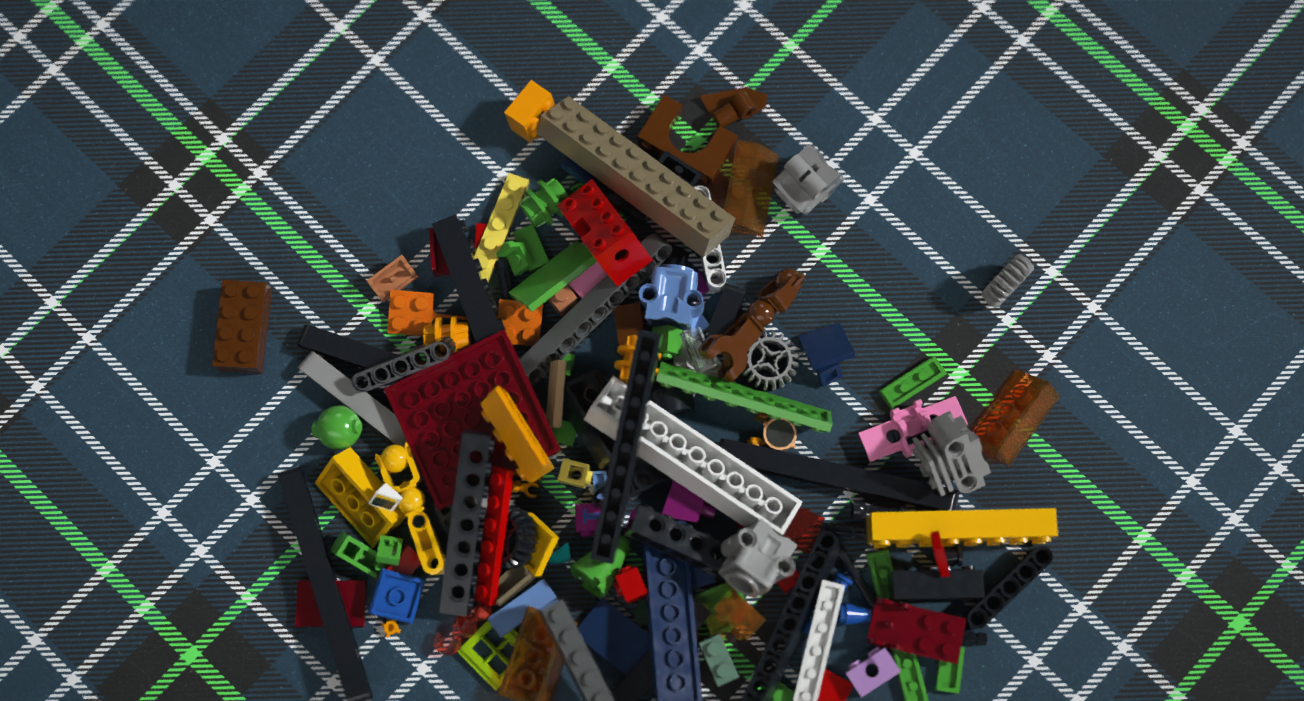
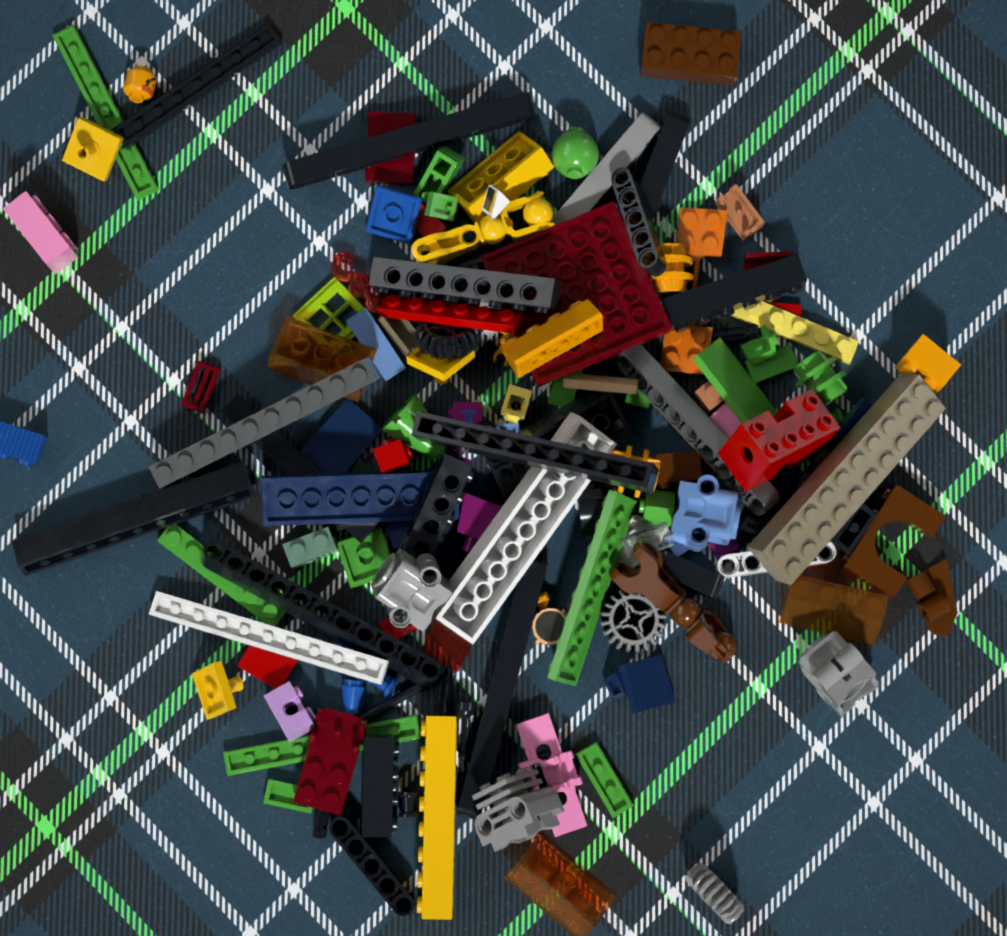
camera: 90 degrees right, 5 degrees up
(391, 628) = (362, 209): light orange piece -> none
(561, 555) = (429, 388): teal slope -> none
(738, 615) = (355, 569): clear orange brick -> none
(939, 553) = (408, 787): red tile -> none

